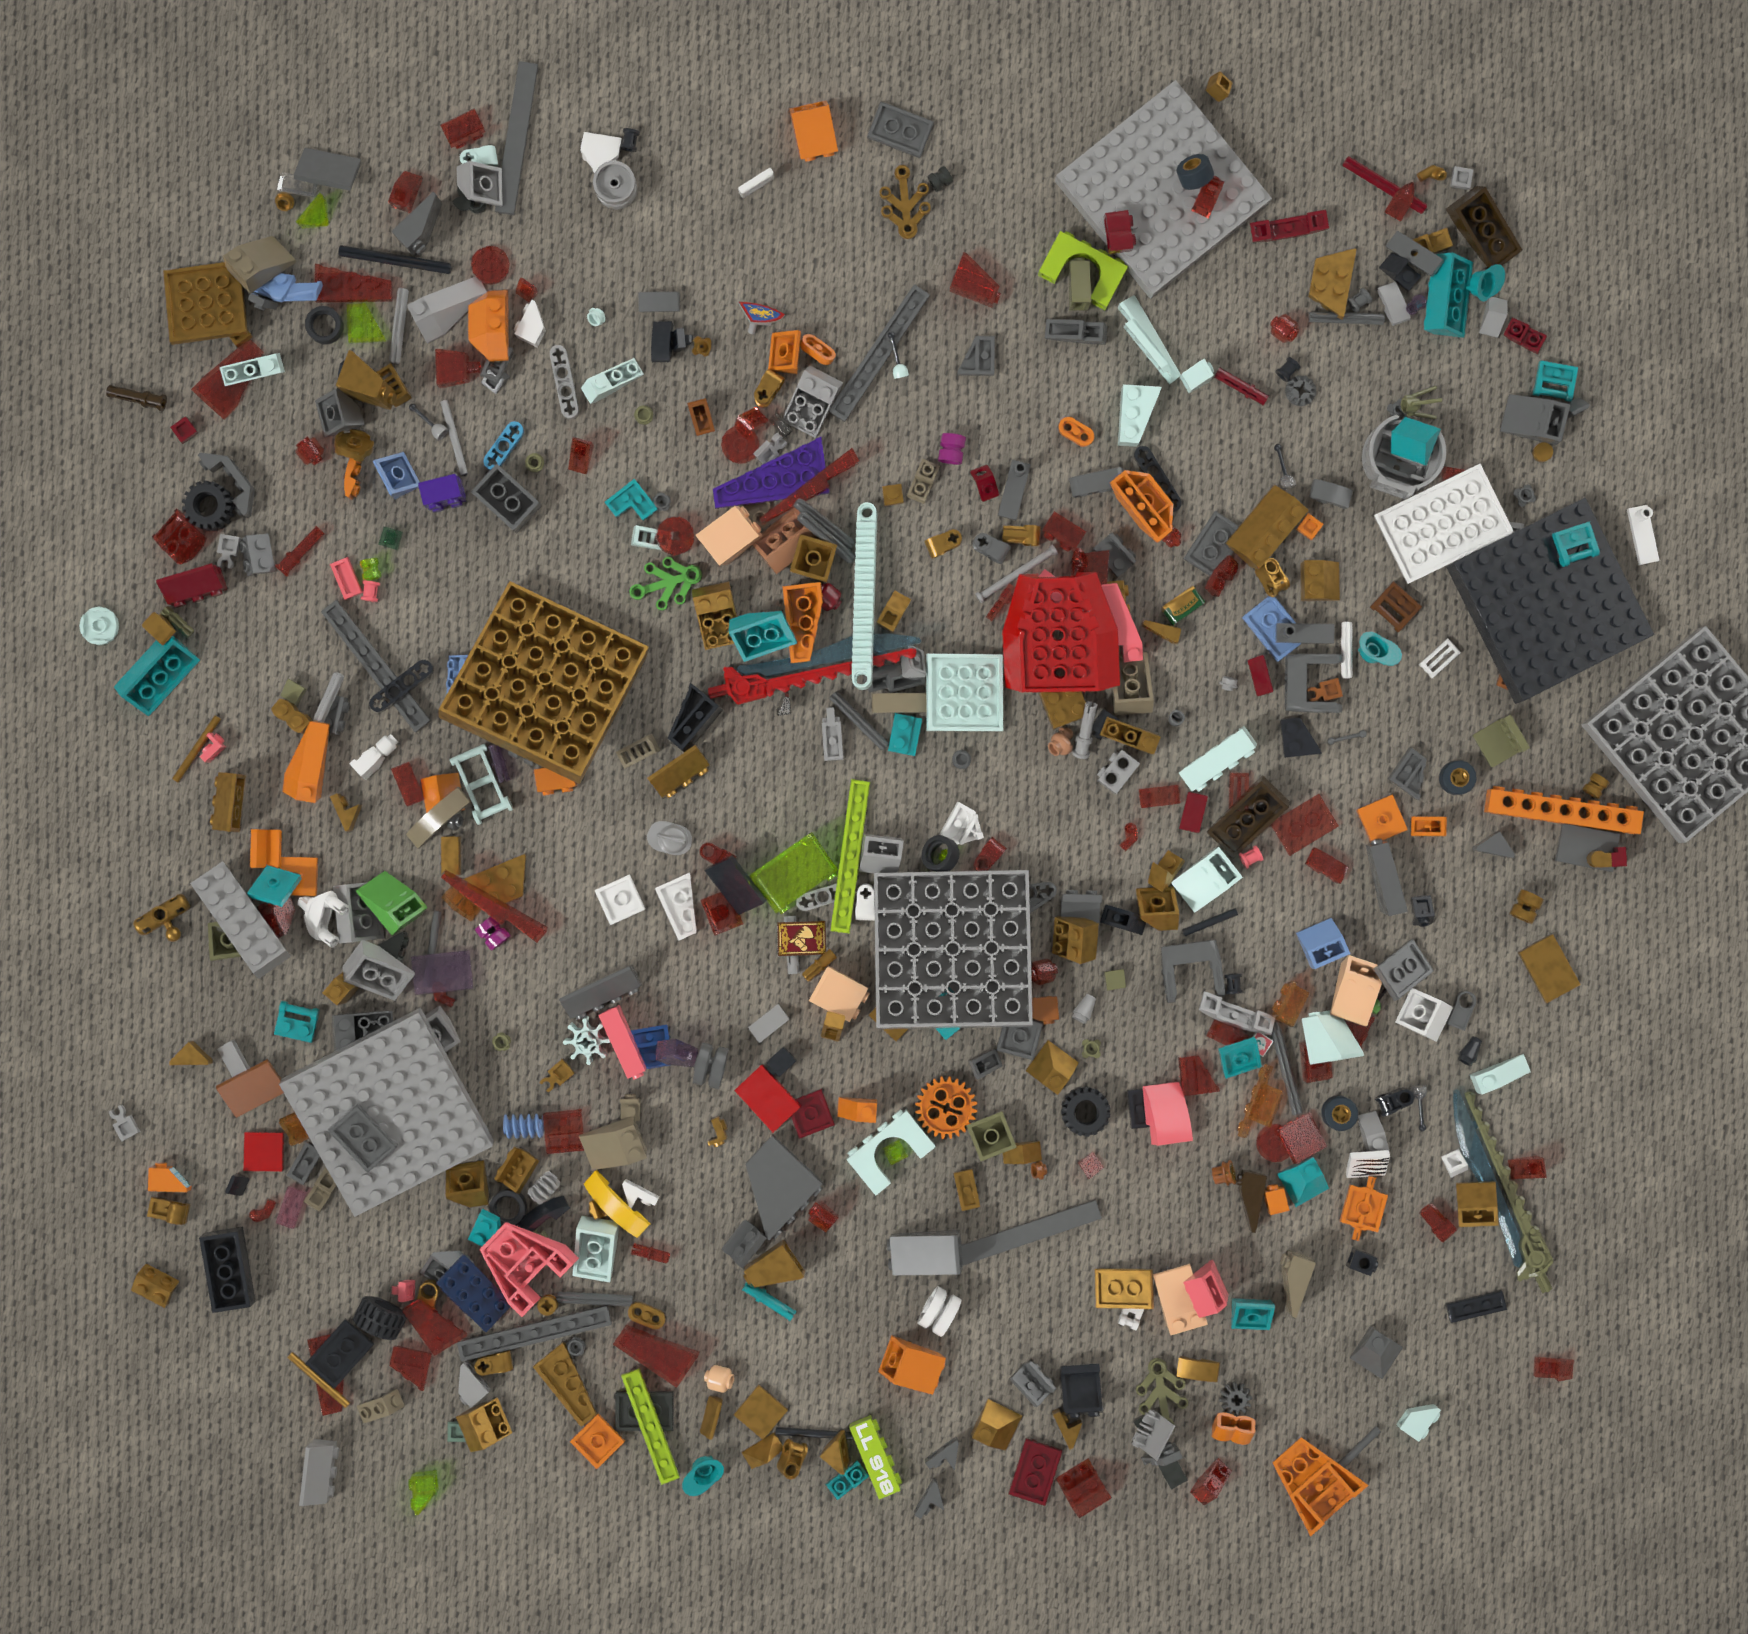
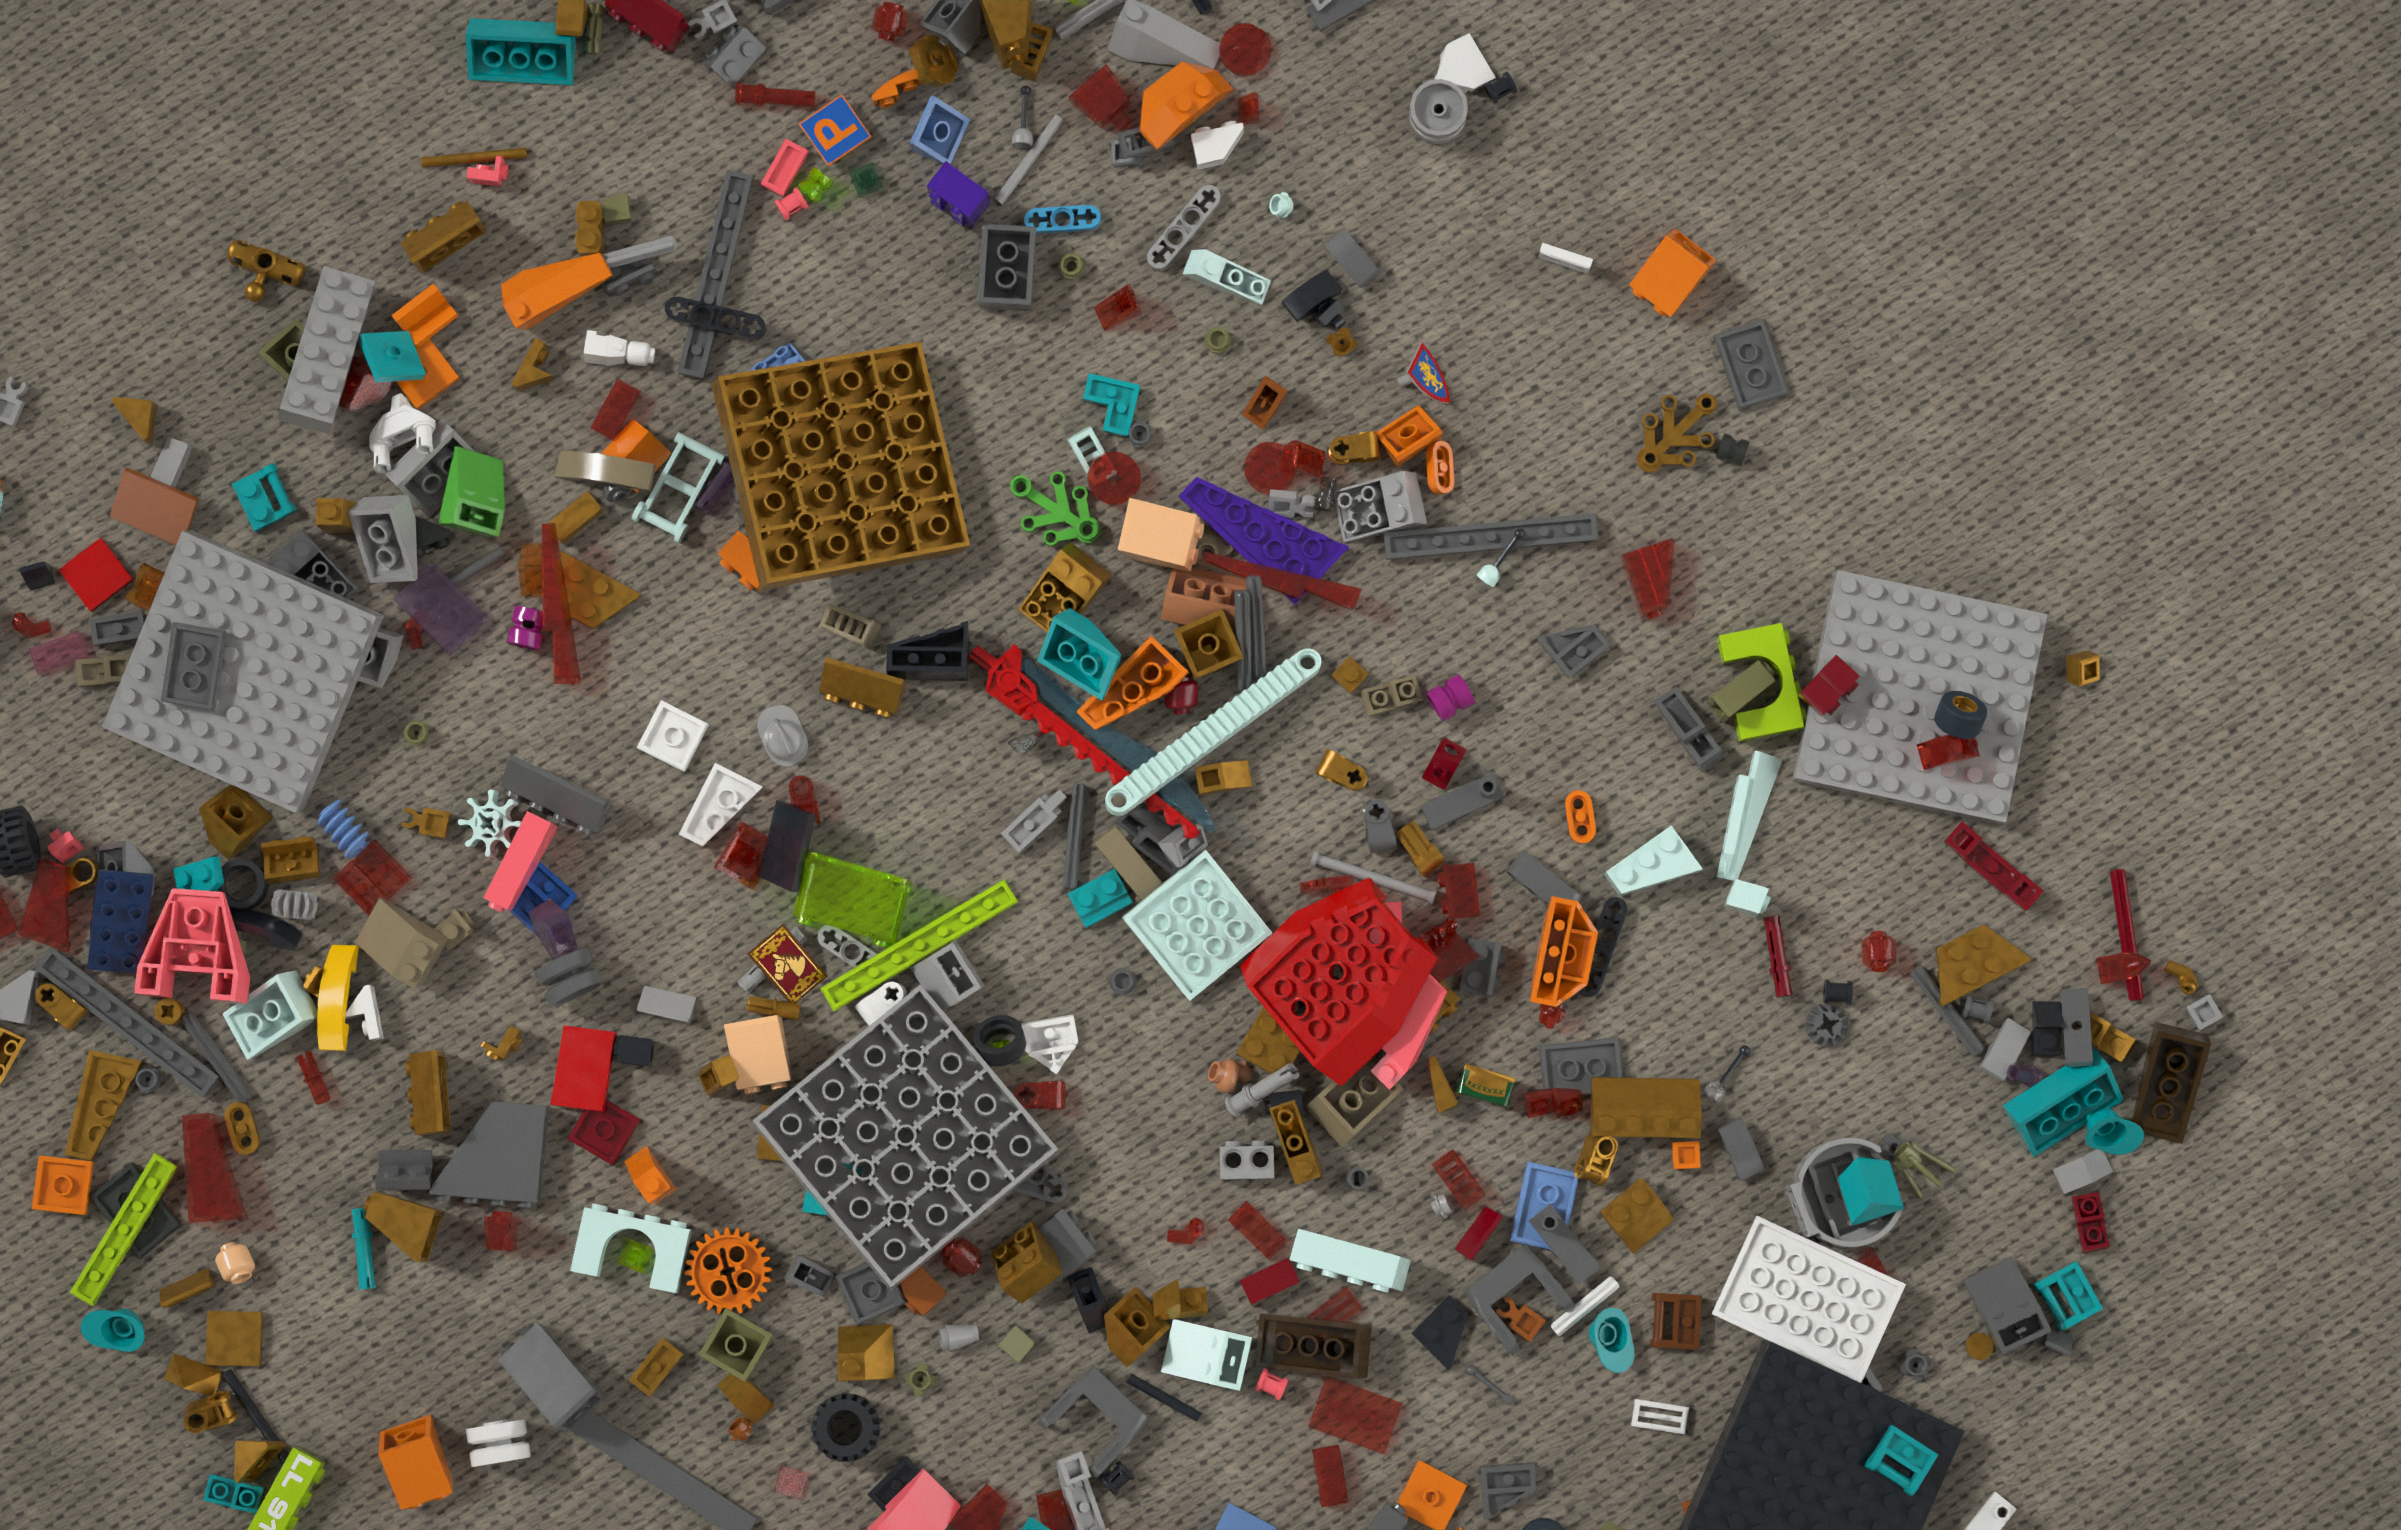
camera: 60 degrees right, 5 degrees down
(348, 532) = (835, 130): none -> blue piece
(711, 1196) = (428, 1093): none -> pearl gold slope
(1238, 660) = (1473, 1197): none -> clear red slope

